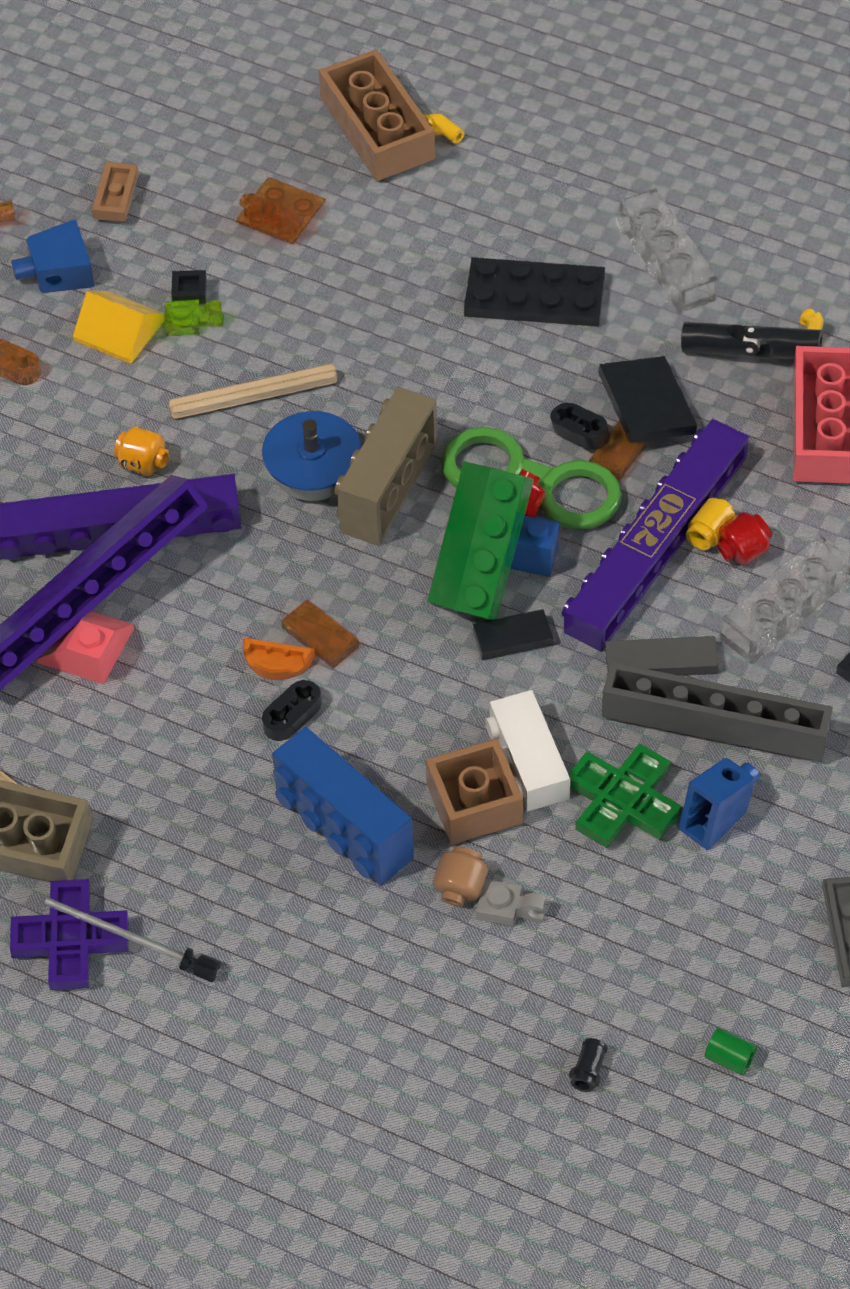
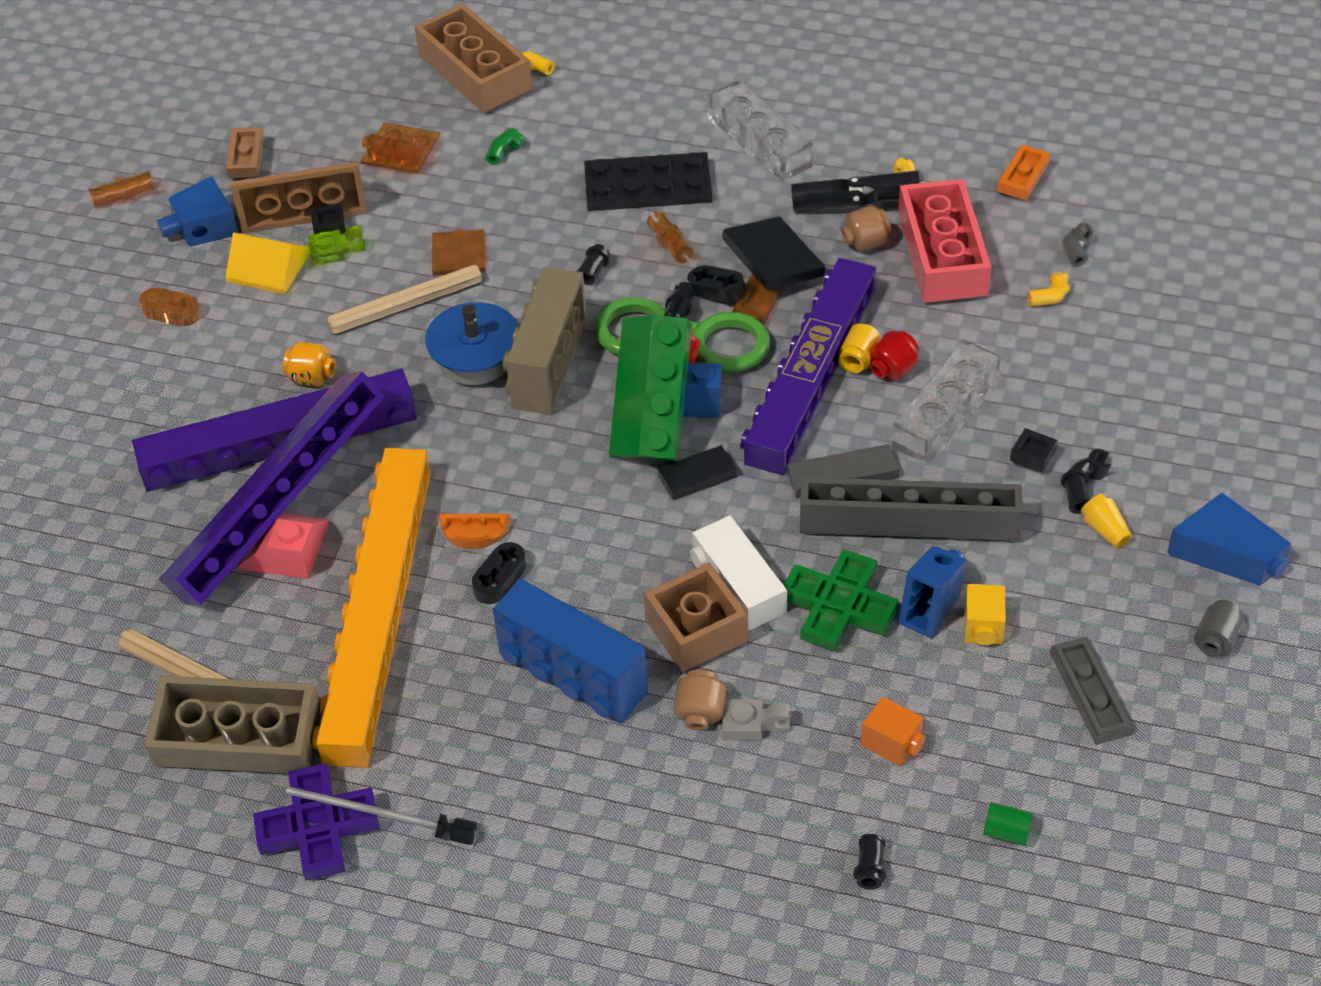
camera: 10 degrees left, 5 degrees down
(152, 256) = (287, 197): none -> medium nougat slope
(162, 725) = (374, 610): none -> light orange brick
(319, 343) = (458, 250): none -> clear orange piece
(321, 633) = (512, 498): clear orange tile -> none
(386, 222) = (499, 144): none -> green arm
(460, 376) = (596, 258): none -> black pin
(534, 444) = (679, 302): none -> black axle
(543, 362) = (670, 237): none -> clear orange pin
(641, 940) = (892, 731): none -> orange brick
(752, 386) = (866, 228): none -> medium nougat head
(764, 835) = (984, 614): none -> yellow brick

